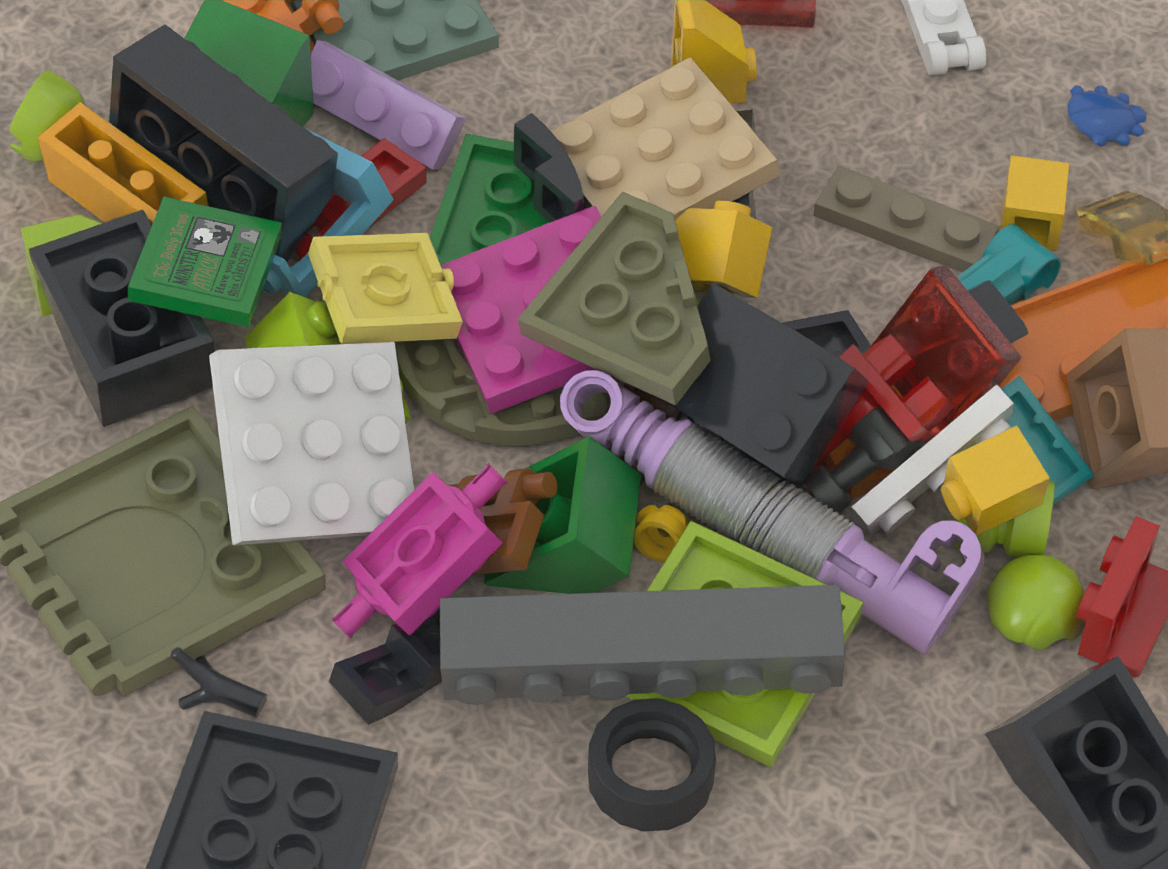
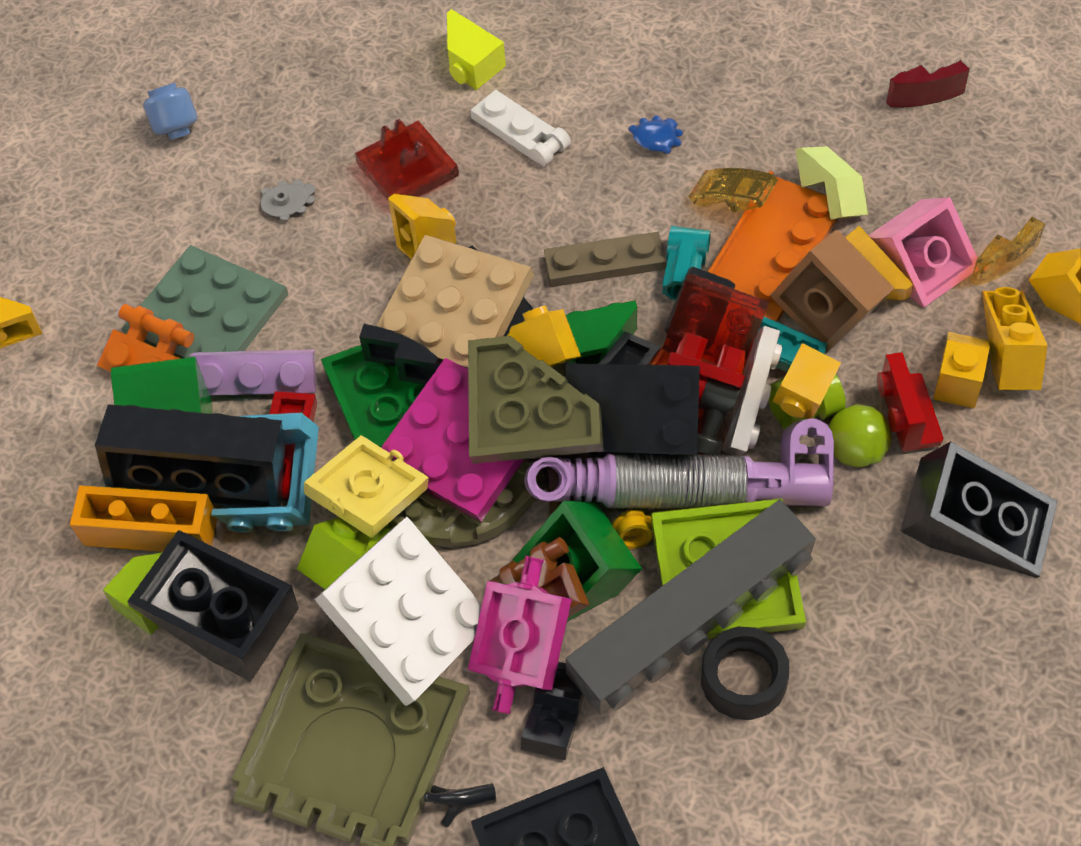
camera: 30 degrees left, 5 degrees up
(42, 107) = (57, 505): lime hair -> none
(205, 262) = (248, 539): green tile -> none
(807, 286) = (600, 328): none -> green slope
(1036, 198) = (666, 204): yellow brick -> none

